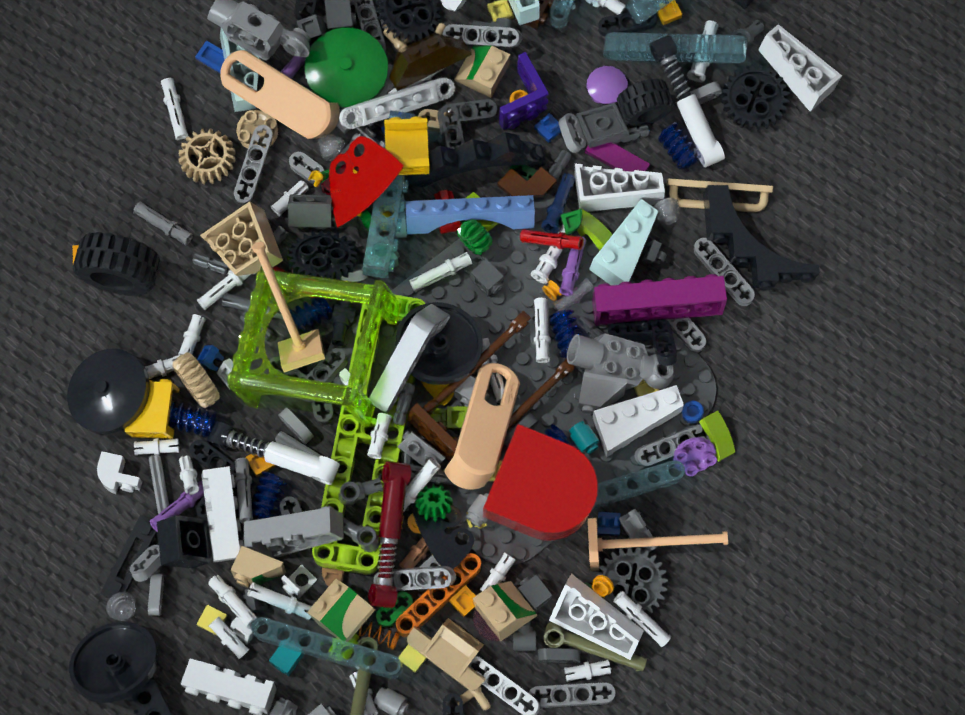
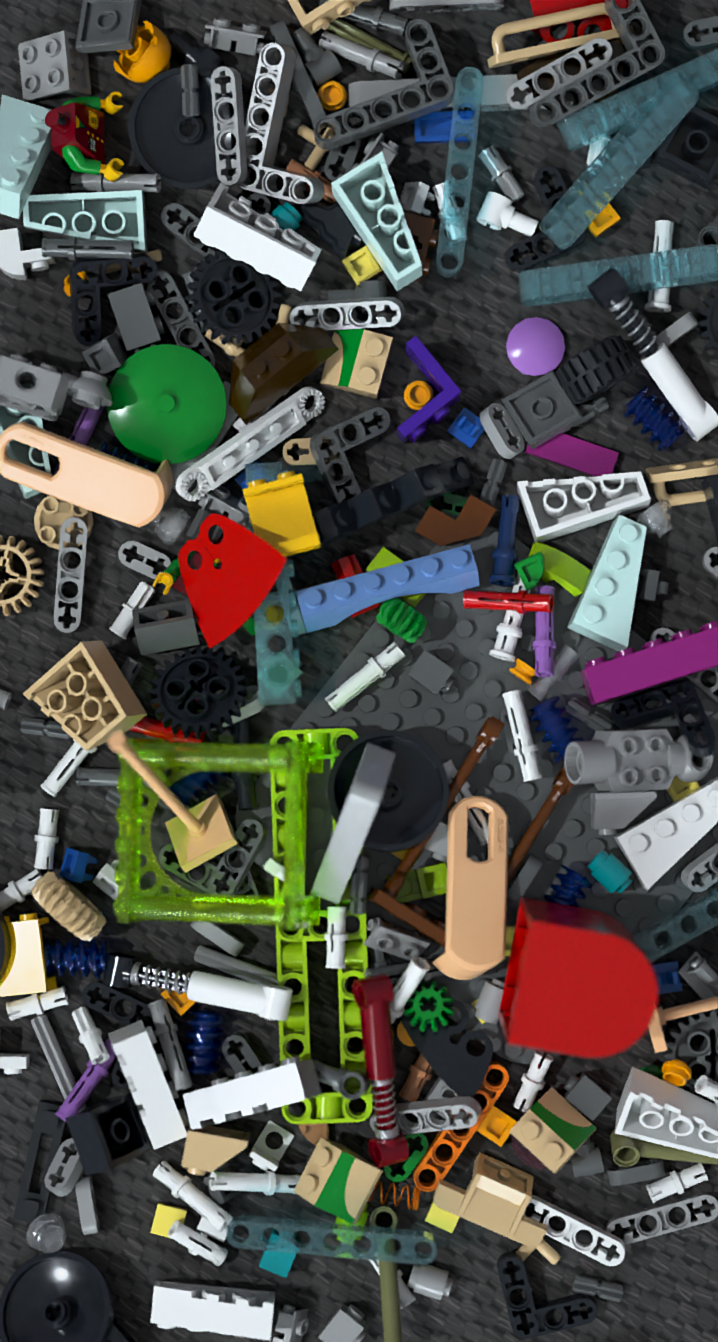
camera: 10 degrees left, 15 degrees up
(360, 490) = (328, 1018): dark grey pin -> none

